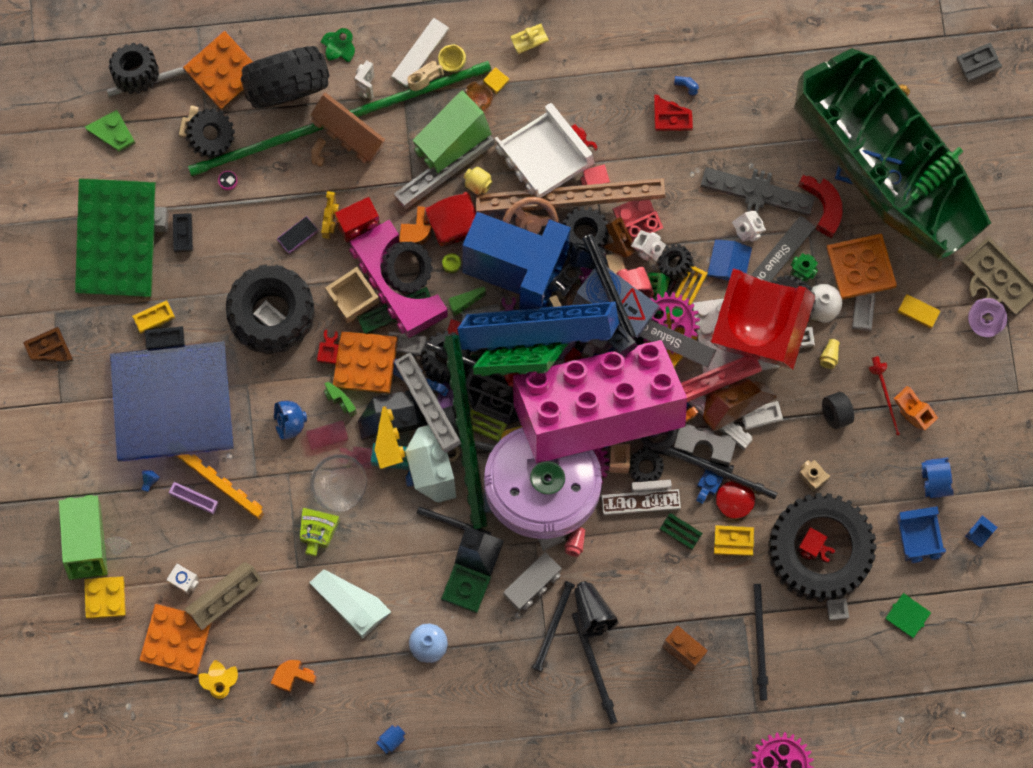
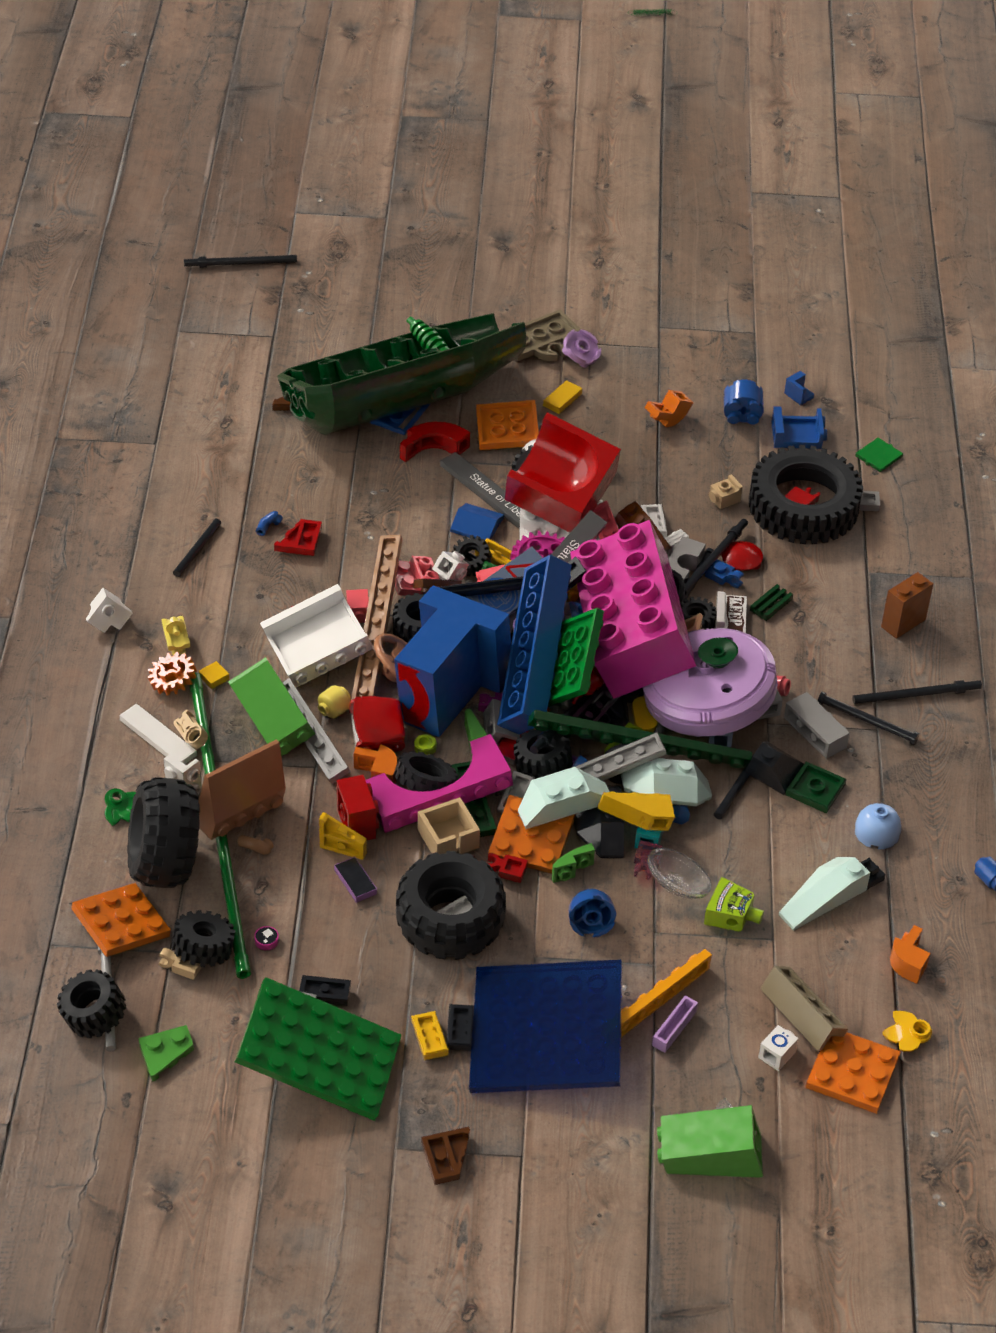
camera: 80 degrees left, 30 degrees down
(105, 597) = (791, 1138): yellow plate -> none
(149, 478) = (642, 1068): blue rock -> none
(327, 435) = (614, 884): clear pink plate -> none
(376, 638) = (876, 874): none -> black tile
(394, 377) = (560, 796): none -> light aqua wedge
(452, 58) = (176, 701): light yellow hair -> none
(480, 95) = (224, 689): clear orange hair -> none
(484, 47) = (170, 673): none -> orange gear
(593, 611) = (855, 676): black cone -> none
(645, 33) = (197, 547): none -> black bar
(733, 540) = (787, 562): yellow plate -> none
(749, 226) = (439, 497): white brick -> none
(757, 191) = (404, 490): dark grey hinge -> none
(762, 679) = (939, 564): black bar -> none
(804, 273) = (499, 463): green brick -> none
(838, 410) = (664, 470): black tyre -> none
(878, 369) = (619, 430): red sword -> none
(979, 62) = (311, 314): dark grey plate -> none

